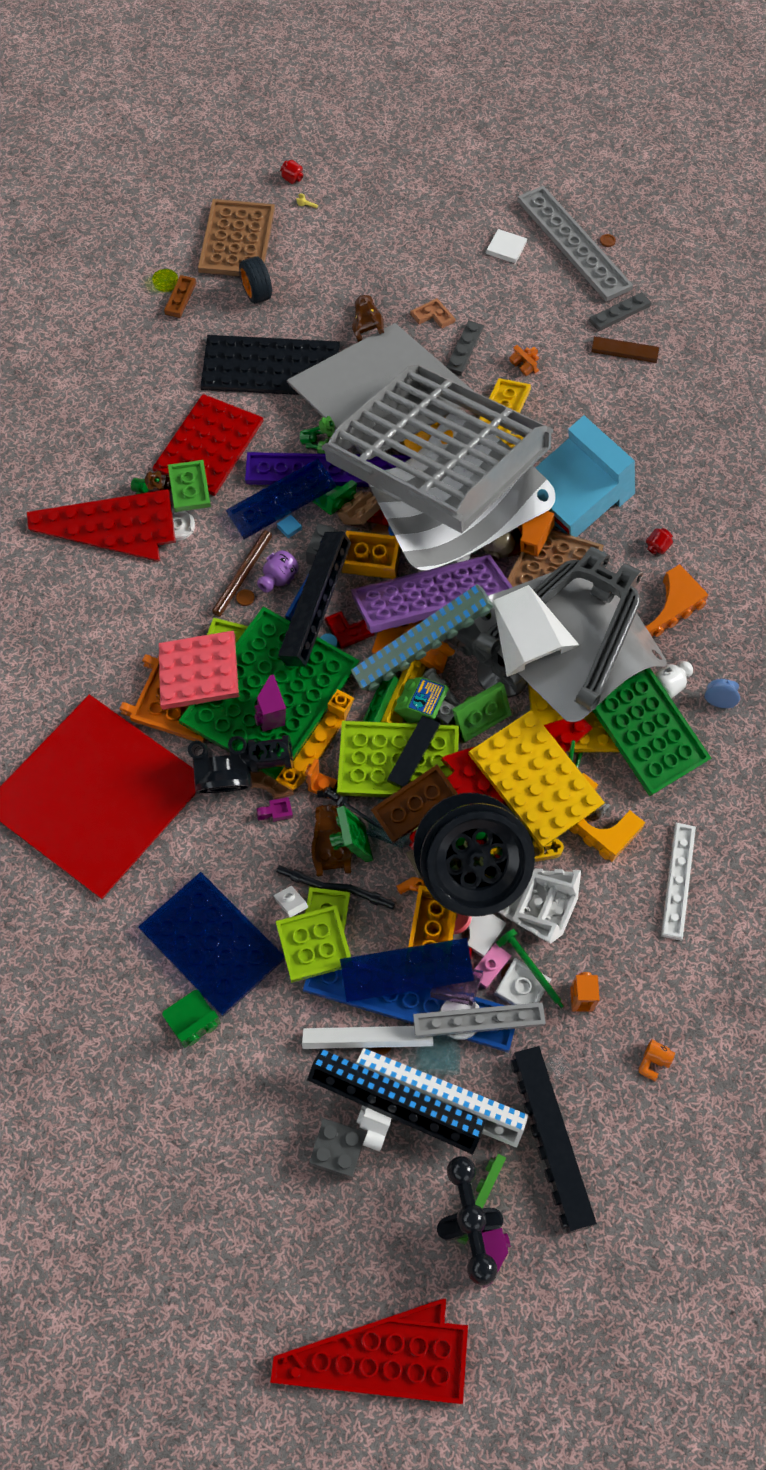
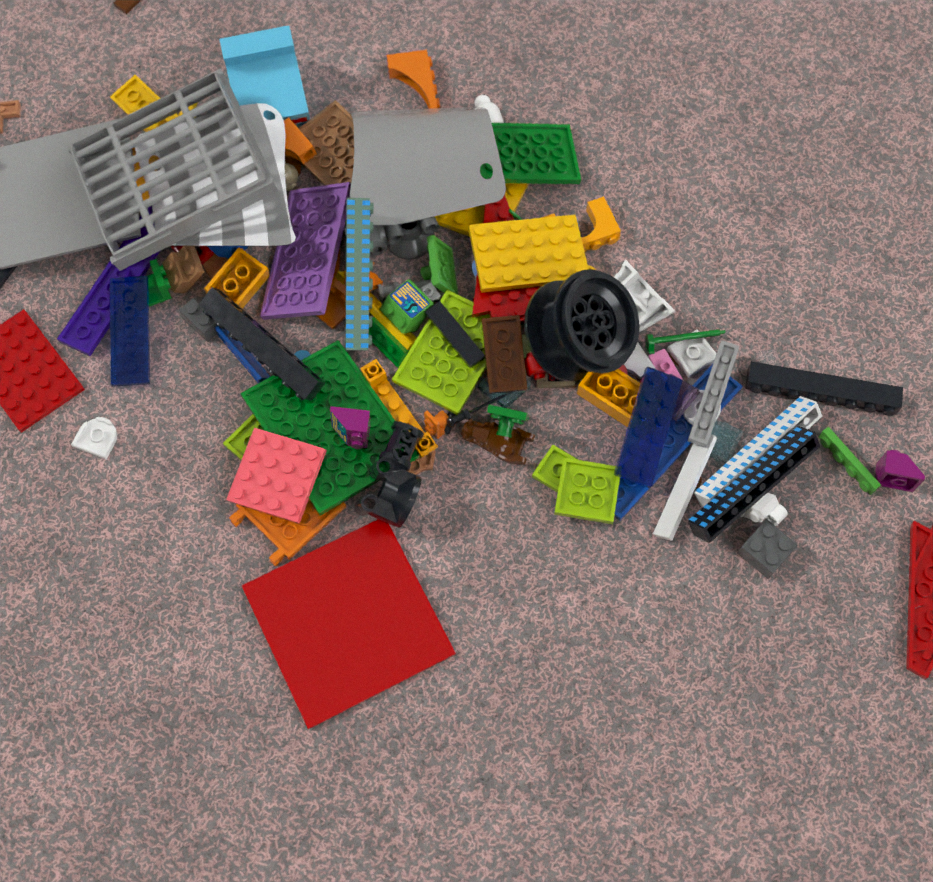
camera: 60 degrees left, 5 degrees up
(118, 524) = (72, 479): red wing -> none
(151, 481) = (45, 430): reddish brown plant -> none
(189, 486) = (68, 402): bright green plate -> none
(191, 1018) = (605, 619): green bracket -> none
(211, 943) = (543, 576): clear blue plate -> none
(242, 573) = (187, 400): reddish brown axle -> none
(245, 597) = (213, 408): dark orange piece -> none
(278, 570) = (206, 366): medium lavender piece -> none
(278, 809) = (445, 469): magenta plate -> none
(289, 526) = (160, 338): dark azure tile -> none
(291, 901) = (539, 493): white plate -> none
(298, 876) = (516, 480): black bar -> none
(309, 436) = (73, 279): plant -> none
(346, 633) = (303, 337): red tile -> none
(410, 884) = (567, 393): orange arm -> none
(465, 347) = (55, 107): dark grey plate -> none
(470, 1222) = (873, 468): black connector -> none
(526, 357) = (103, 63): orange hips -> none
(528, 629) = (406, 184): white wedge -> none
(584, 992) = (723, 308): orange brick -> none
(605, 586) = (394, 107): dark grey piece -> none
(657, 1054) = (791, 284): orange piece -> none
(659, 541) = (353, 59): red head -> none
(678, 881) = (658, 201): white tile -> none
(722, 693) = (520, 86): medium blue piece -> none

